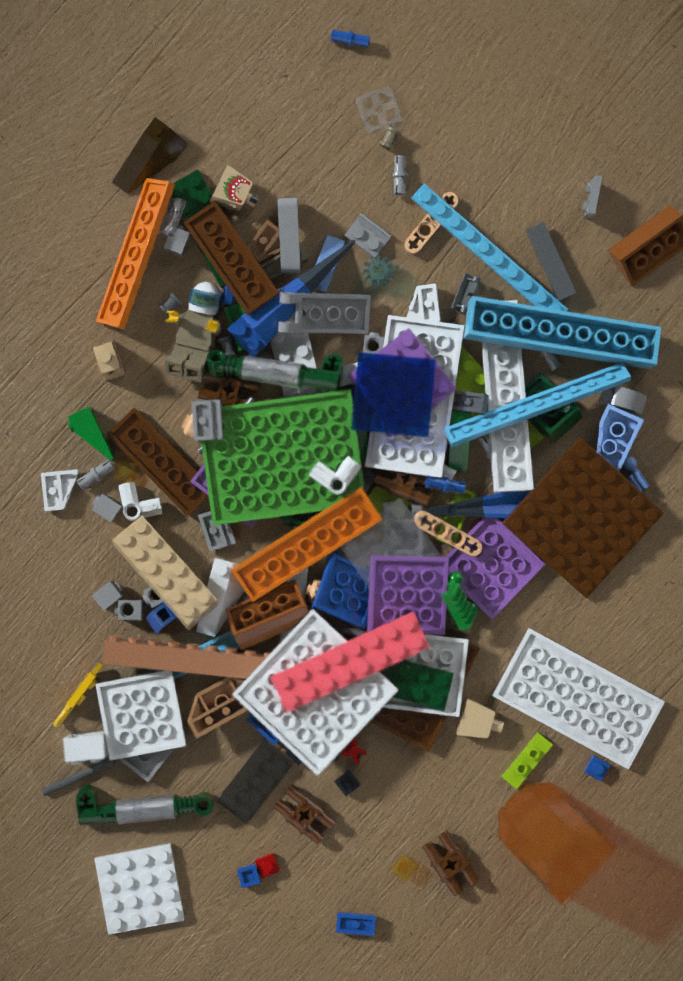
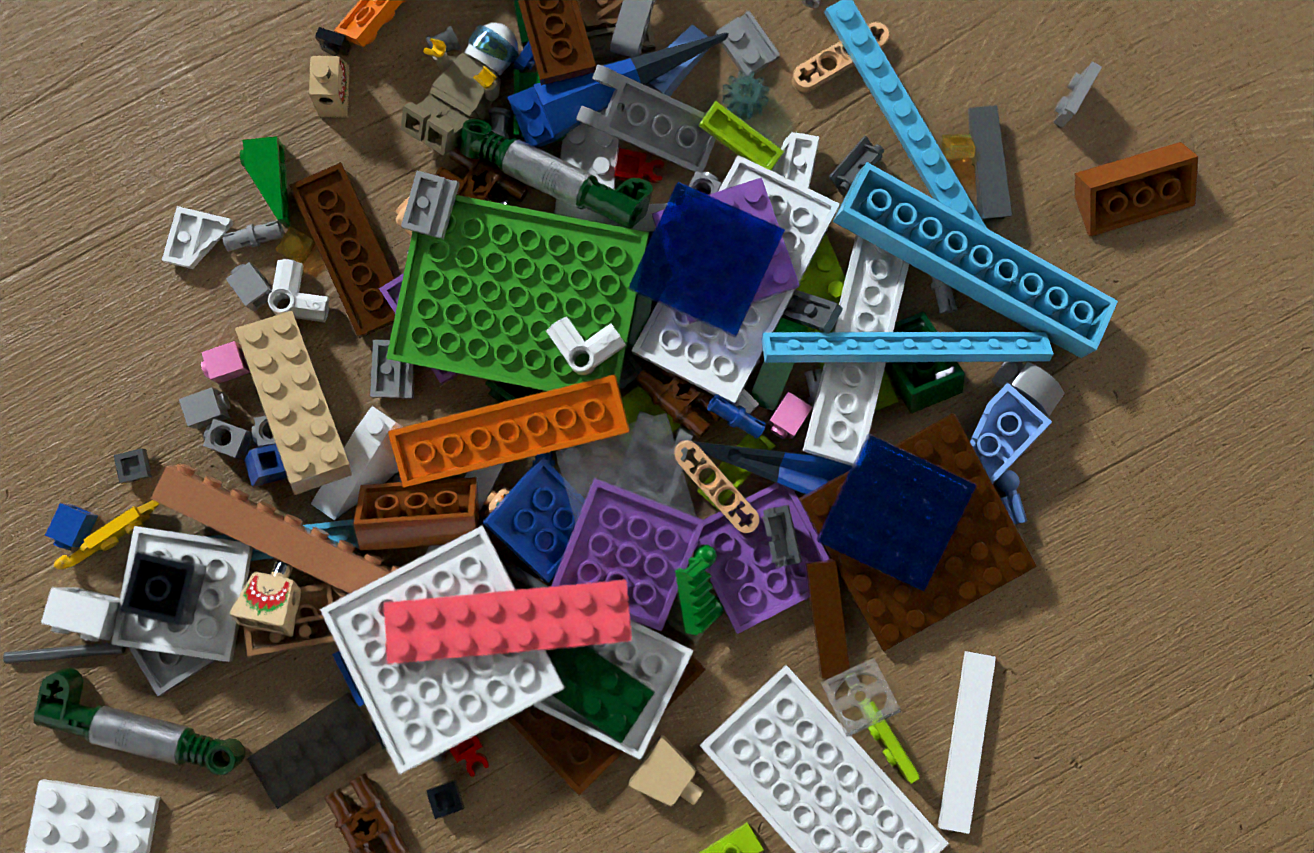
camera: 15 degrees right, 5 degrees down
(53, 698) = (70, 526): none -> blue brick
(76, 647) = (132, 466): none -> dark grey plate
(99, 331) = (332, 42): none -> black plate
(109, 562) = (224, 362): none -> bright pink brick
(132, 715) = (163, 588): none -> black brick
(198, 700) = (269, 601): none -> tan torso
(322, 344) = (633, 165): none -> red plate
(385, 303) = (740, 136): none -> lime plate
(478, 471) = (789, 416): none -> bright pink brick
(502, 554) = (784, 541): none -> dark grey hinge
(527, 257) = (958, 146): none -> clear yellow plate
(545, 590) = (827, 618): none -> reddish brown tile
(564, 511) = (896, 512): none -> clear blue plate
(591, 642) = (870, 716): none -> clear piece
(613, 658) = (894, 752): none -> lime plate
(656, 635) = (966, 742): none -> white tile

